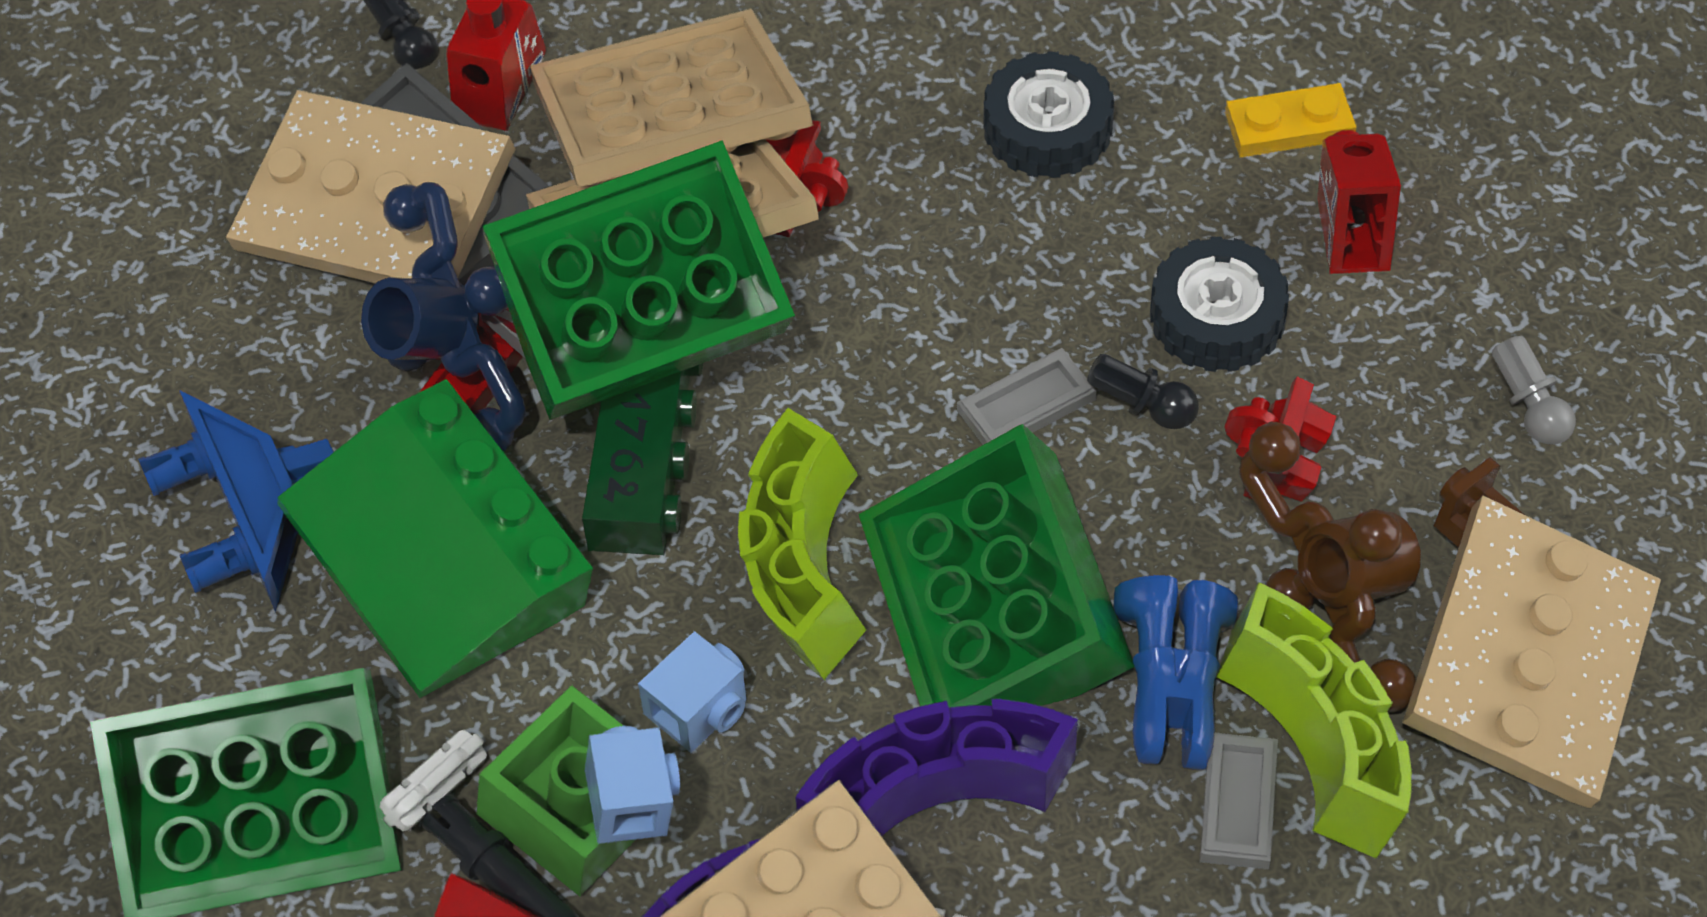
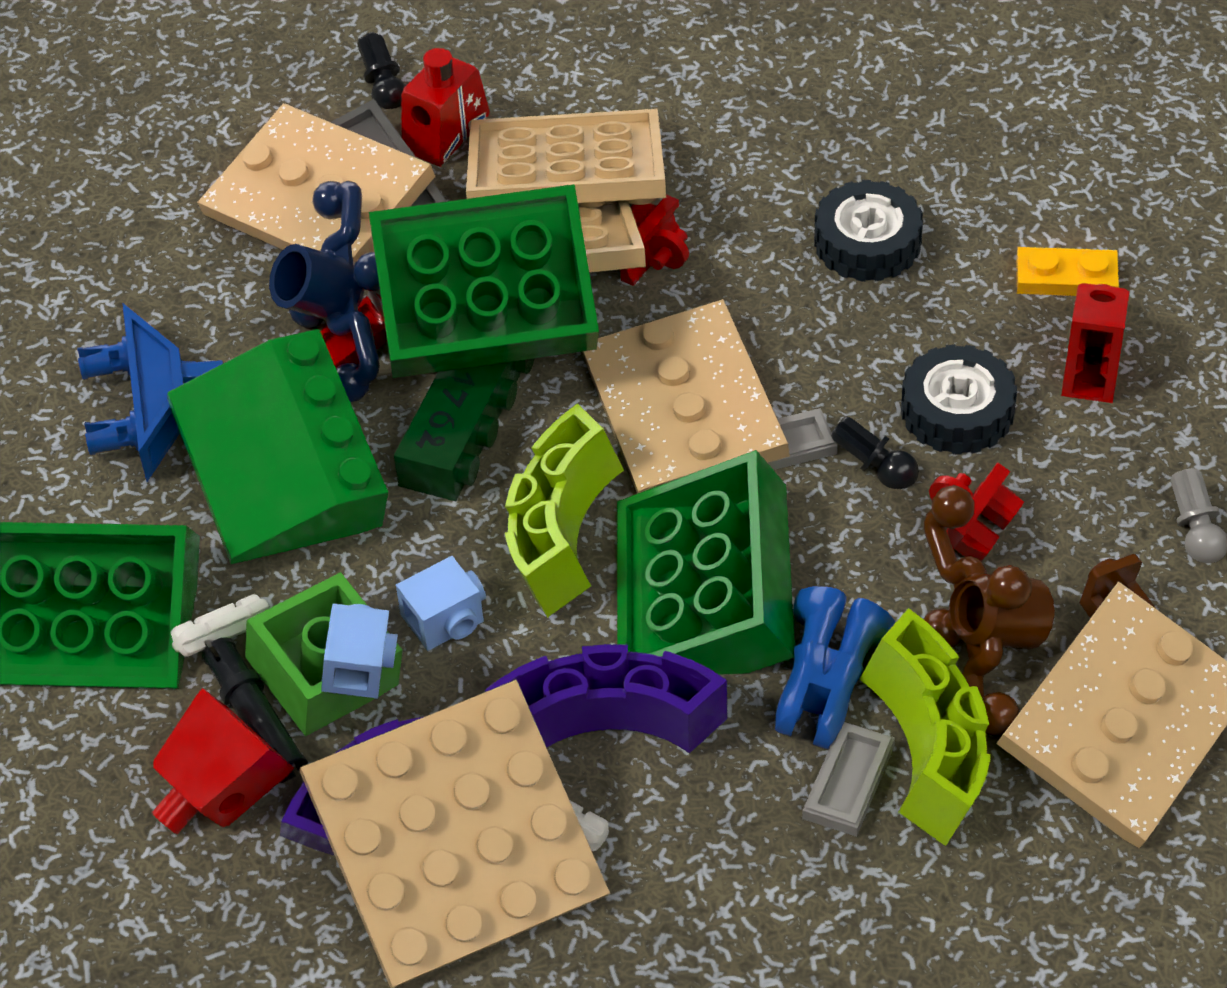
camera: 15 degrees right, 5 degrees down
(900, 370) = (683, 396): none -> tan plate

